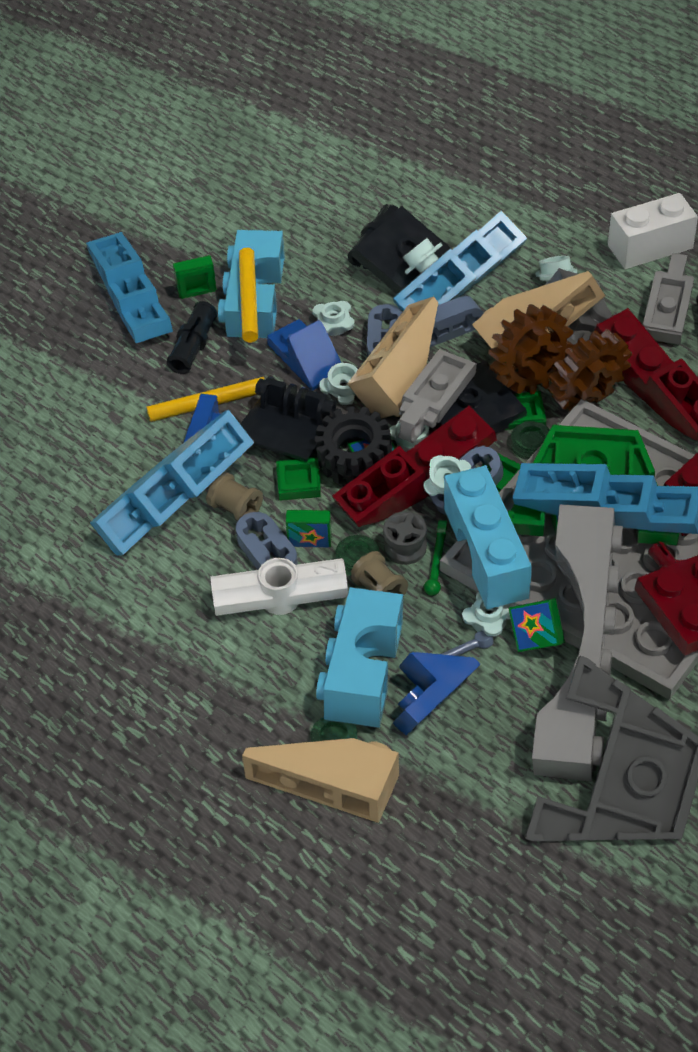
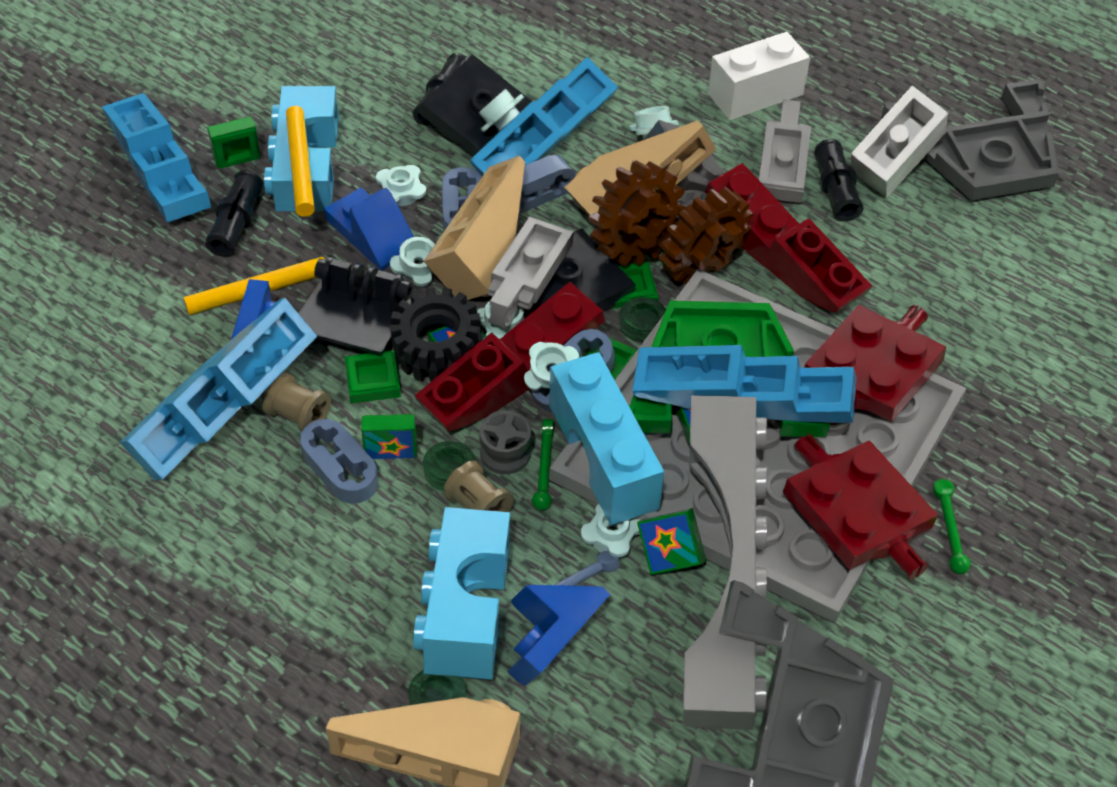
camera: 10 degrees left, 0 degrees up
(279, 586) = (331, 513): white piece -> none

